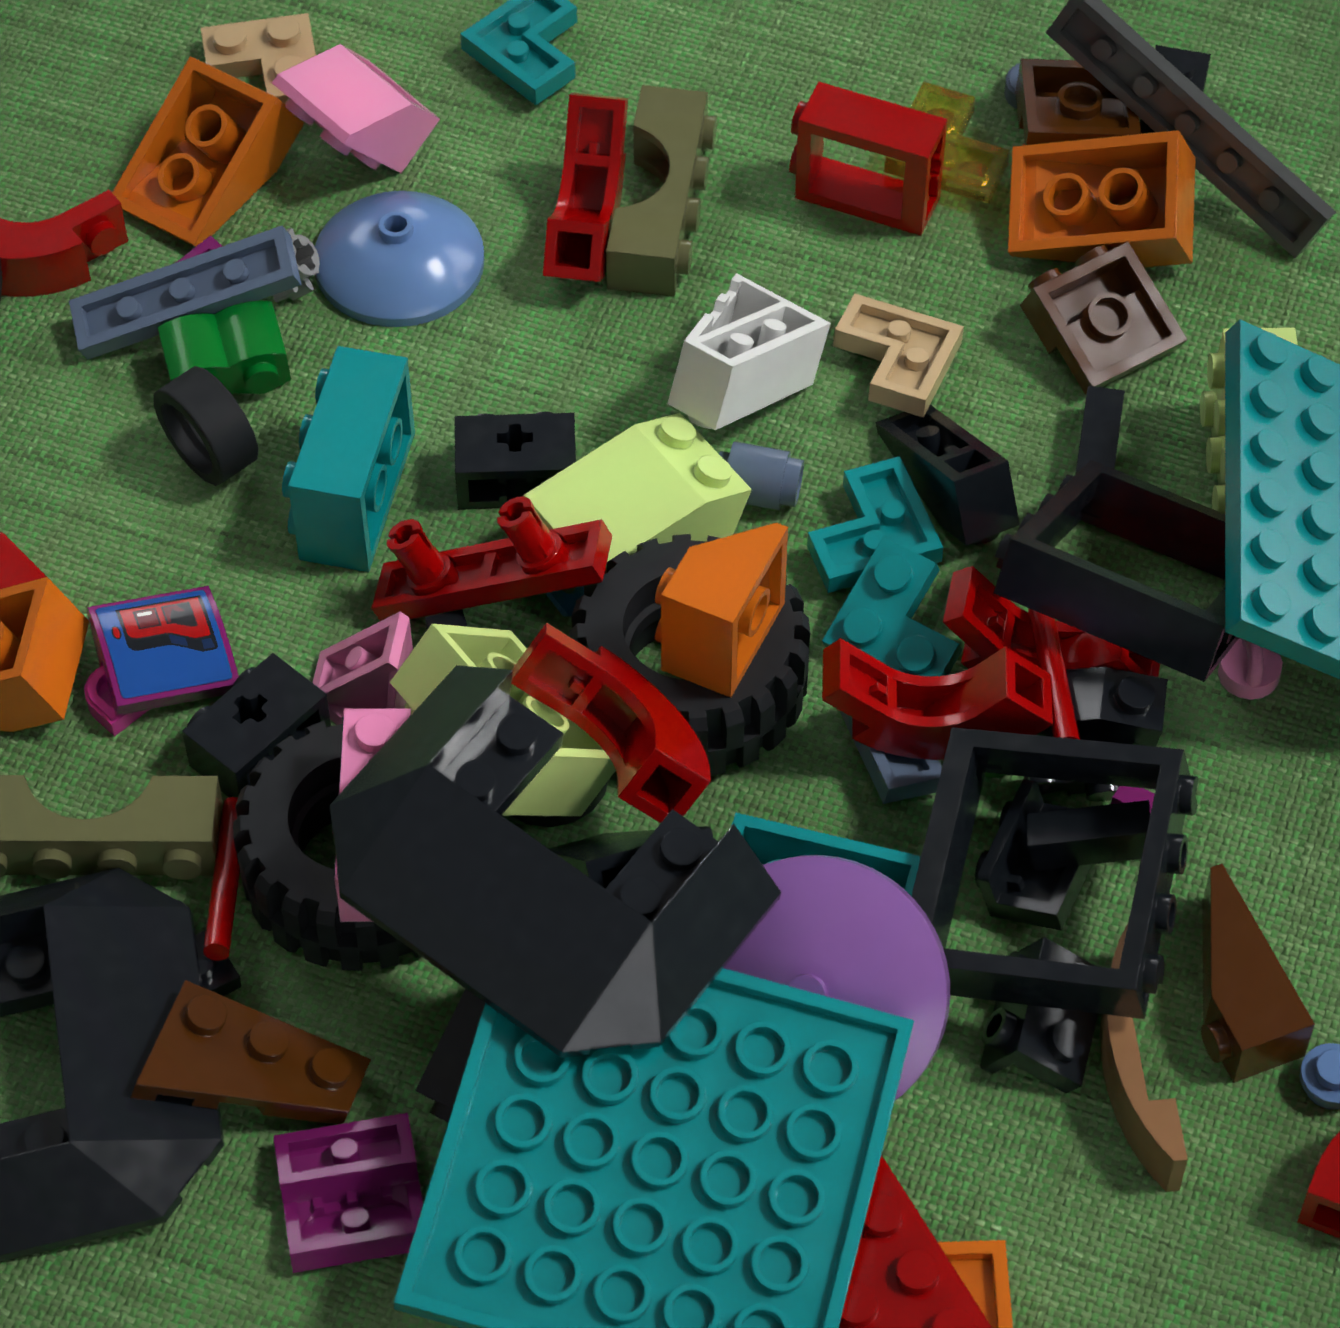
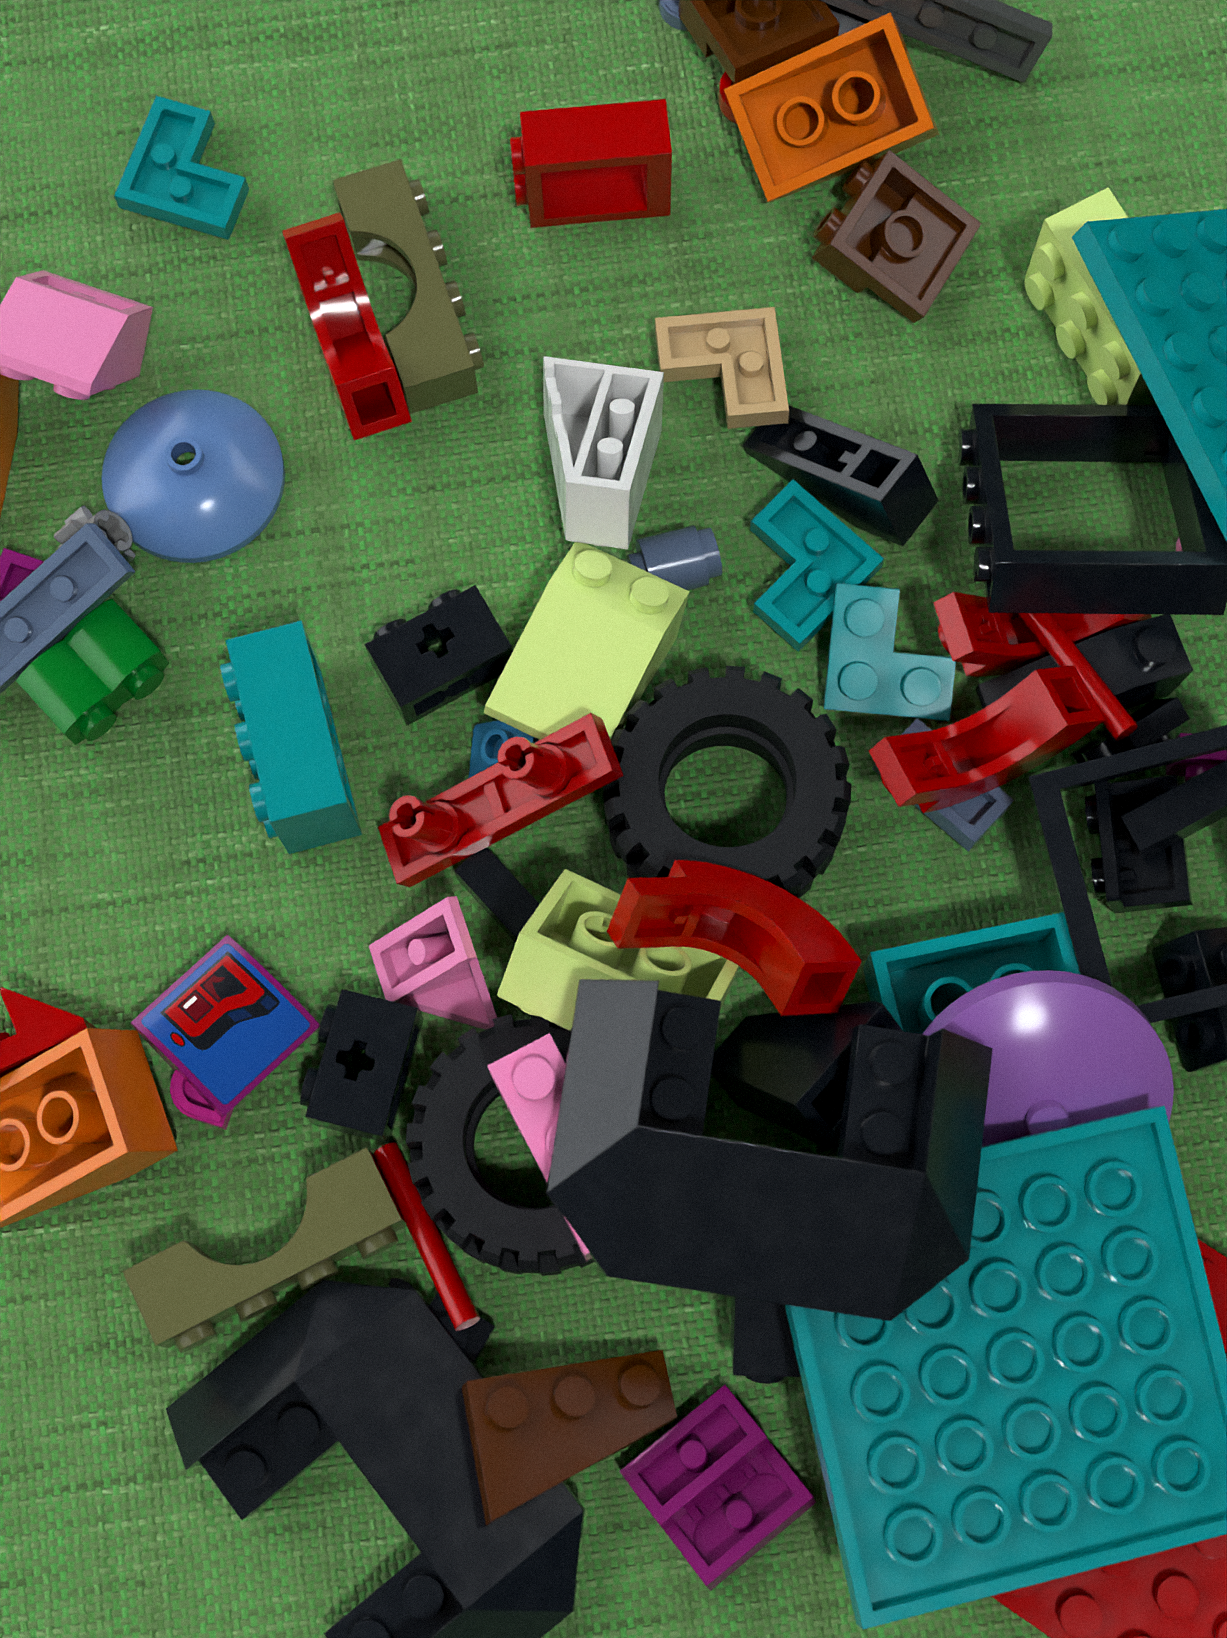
camera: 25 degrees left, 20 degrees up
(206, 425) = (129, 769): black tyre -> none
(721, 606) = (771, 771): orange slope -> none
(969, 165) = (626, 75): clear yellow plate -> none
(1100, 426) = (954, 366): black piece -> none

